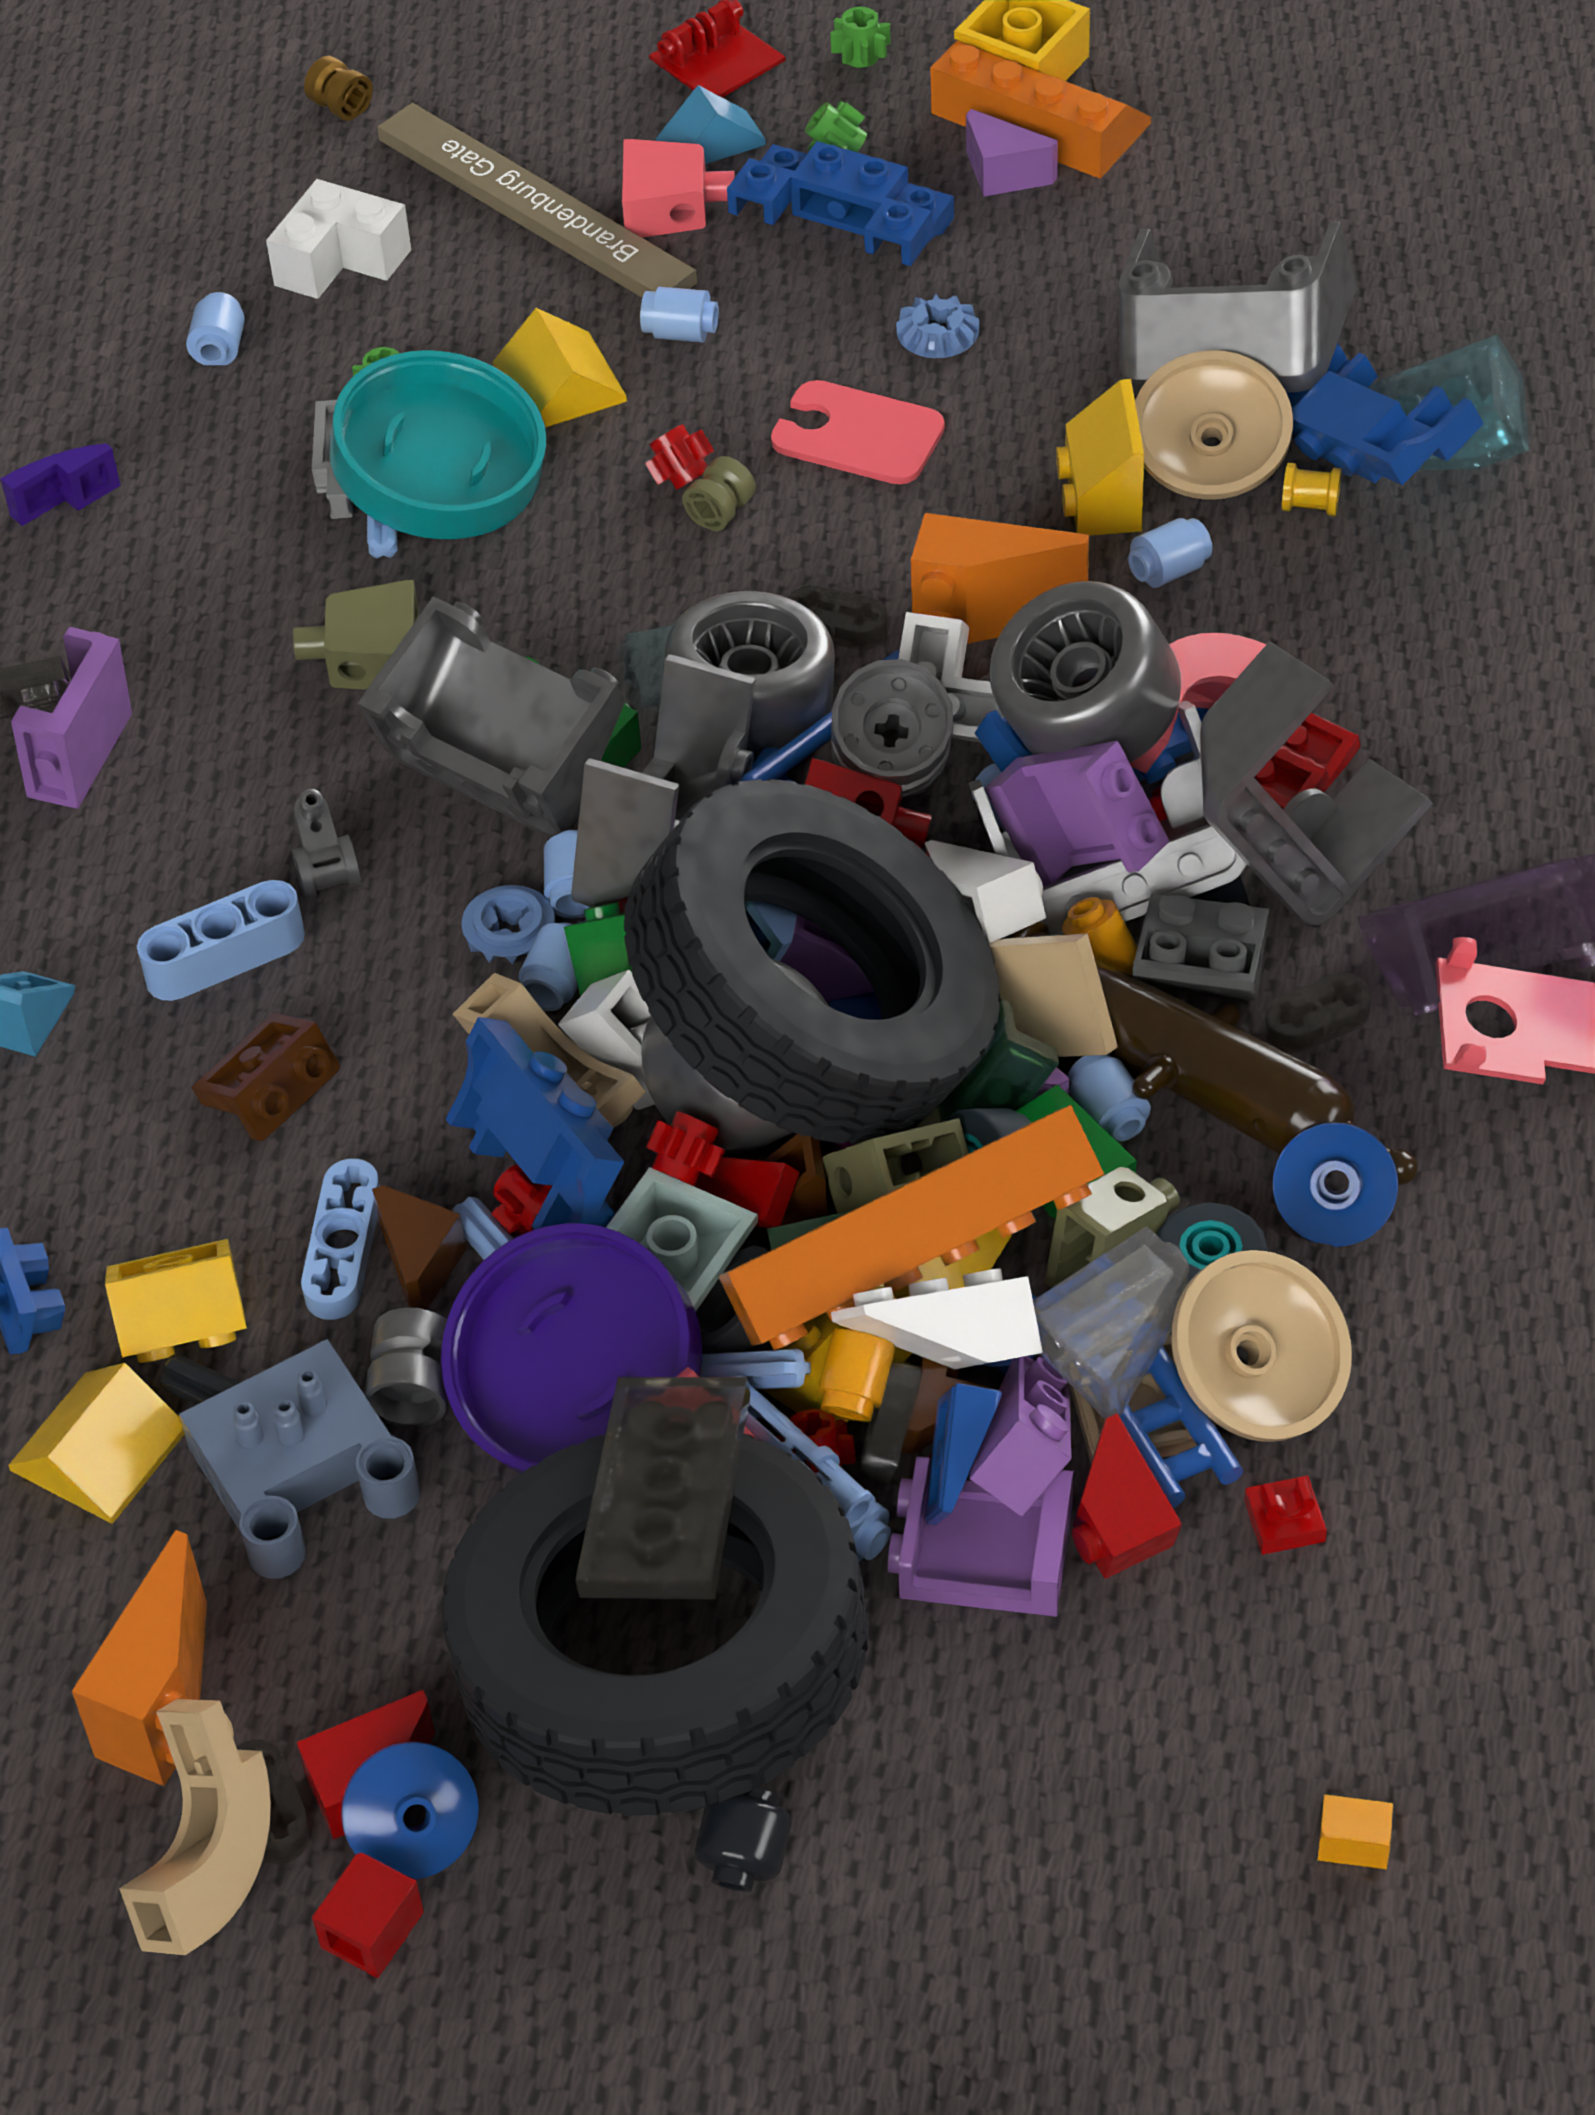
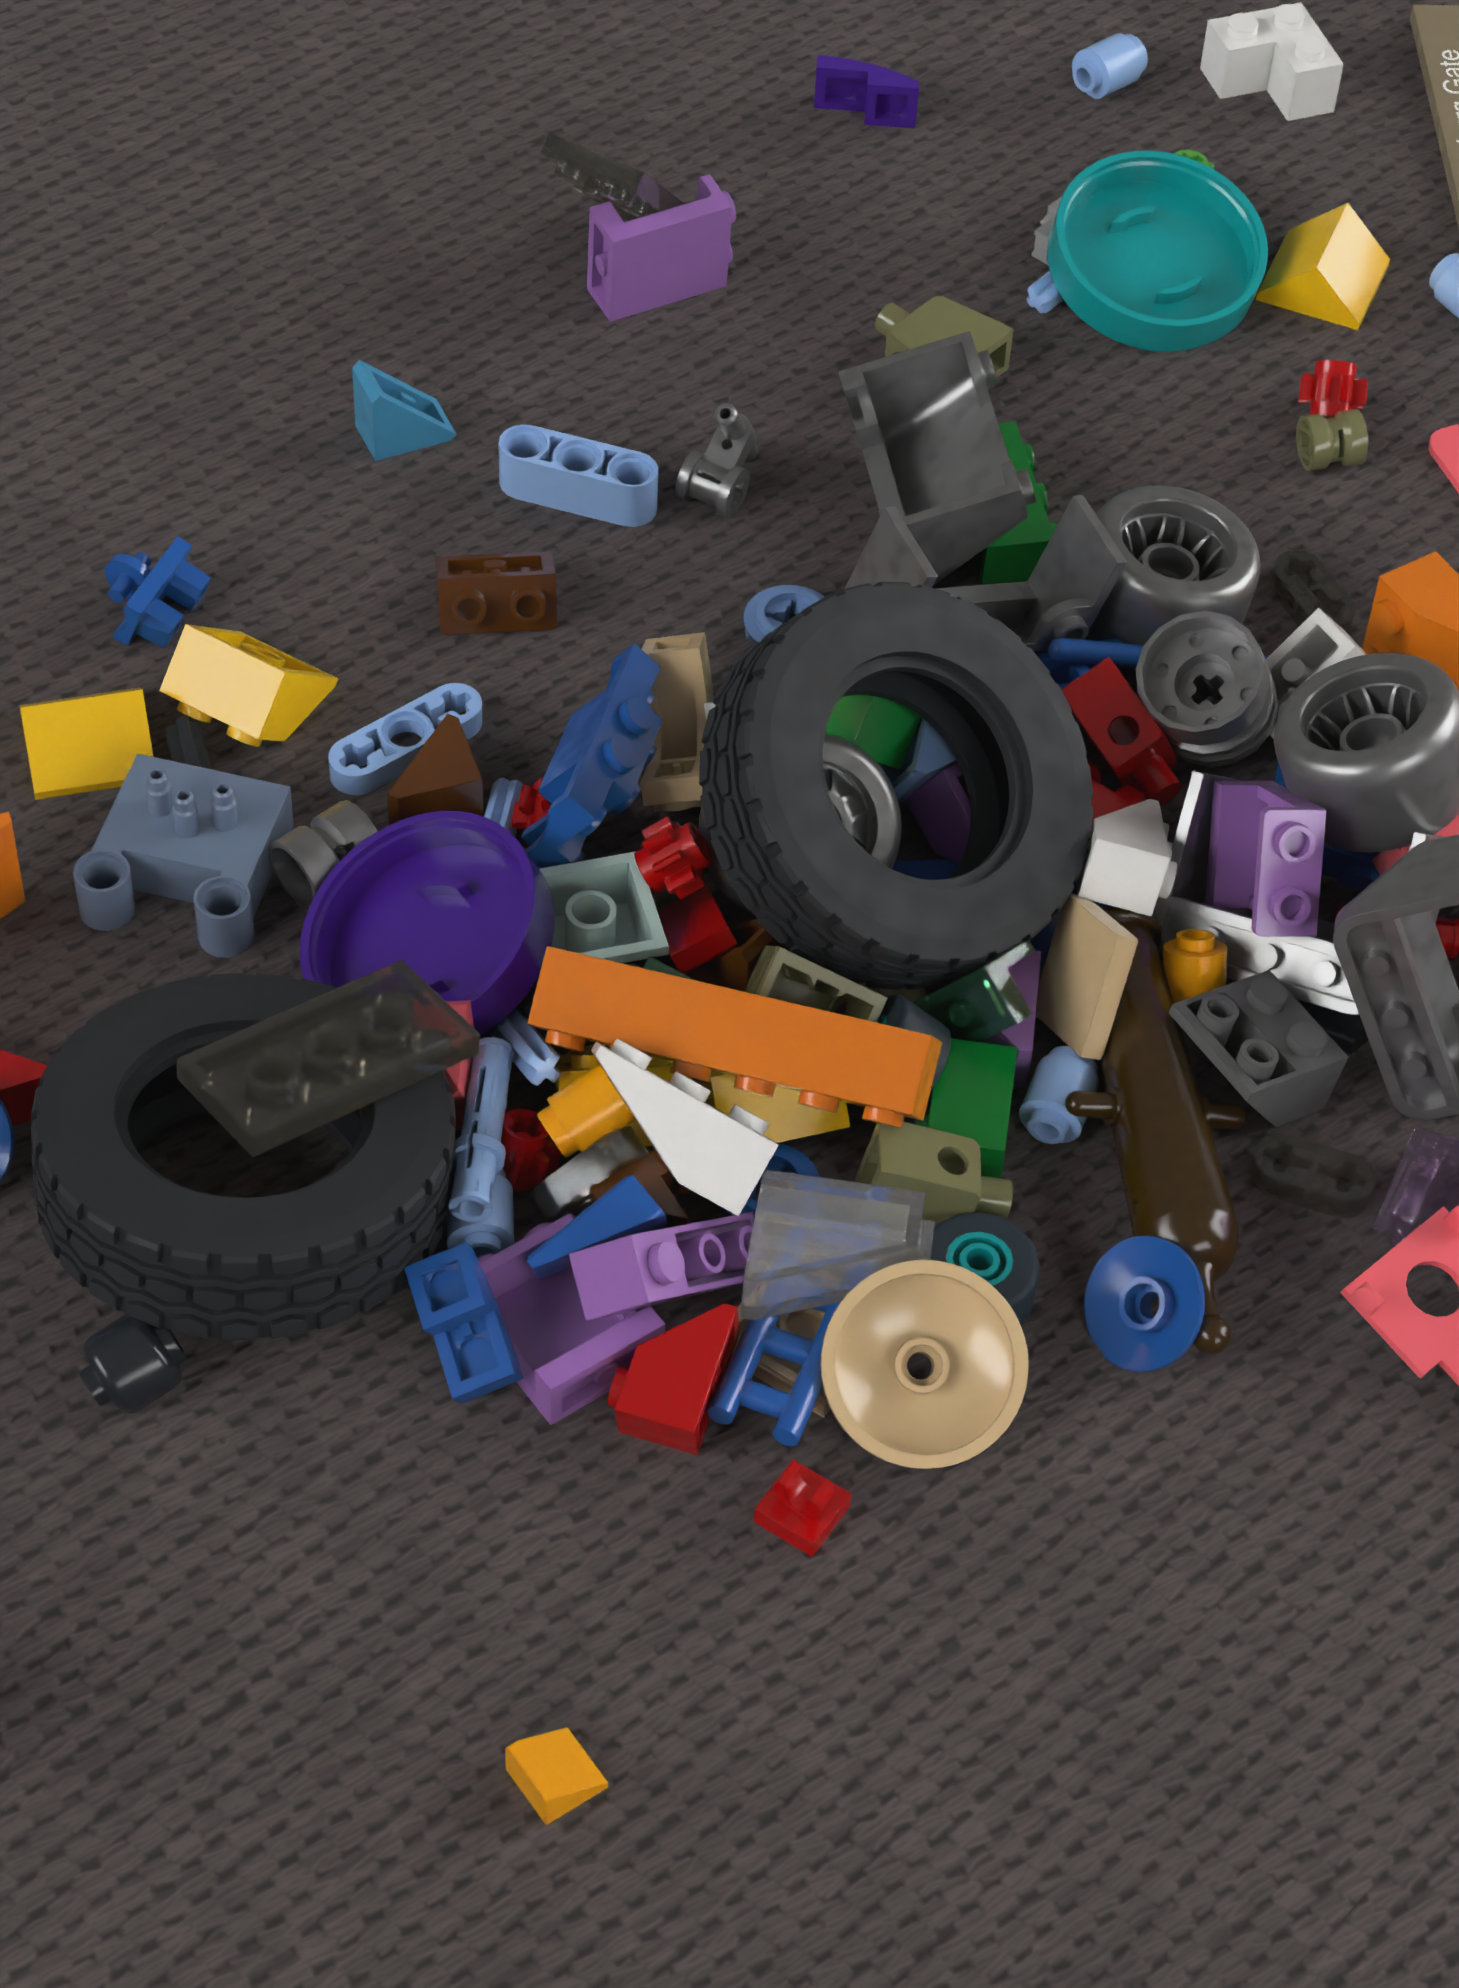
camera: 40 degrees right, 0 degrees up
(937, 1595) = (465, 1322): none -> blue slope

